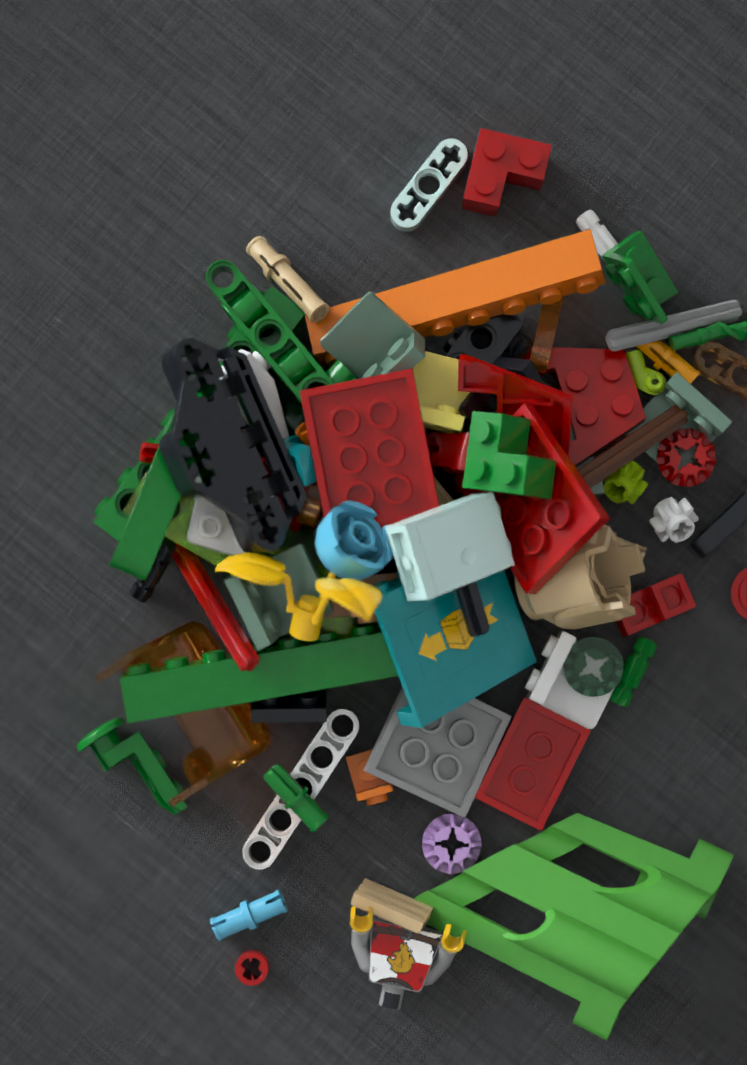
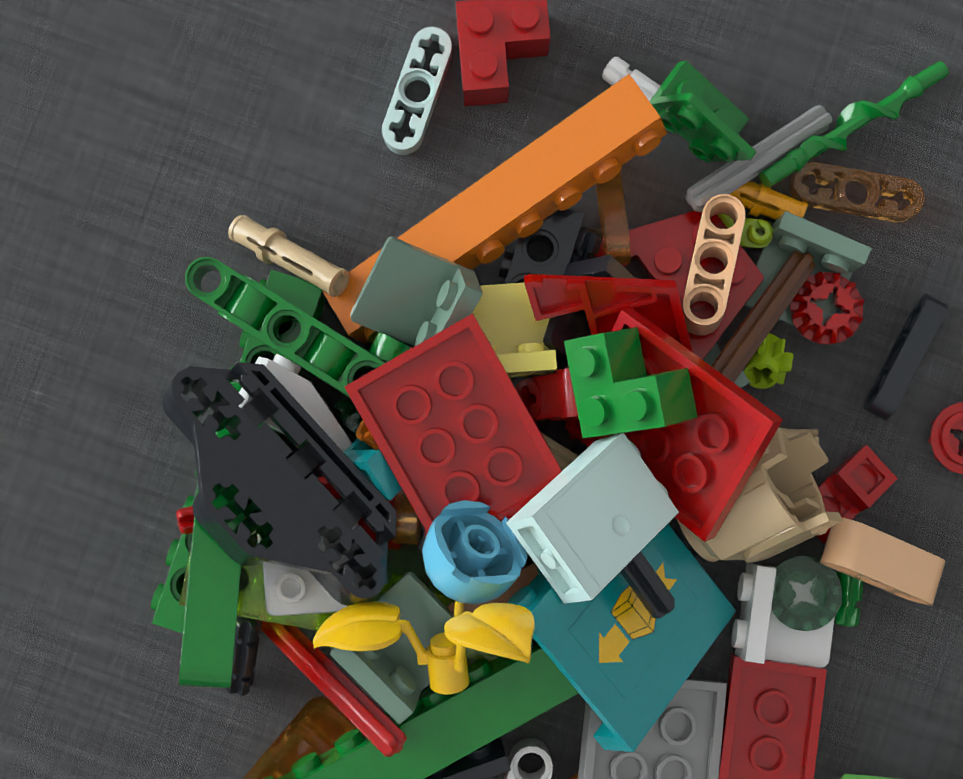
camera: 15 degrees left, 0 degrees up
(611, 377) = (719, 244): none -> light nougat beam
(660, 662) = (883, 561): none -> light nougat beam
(673, 519) = (837, 386): white gear -> none

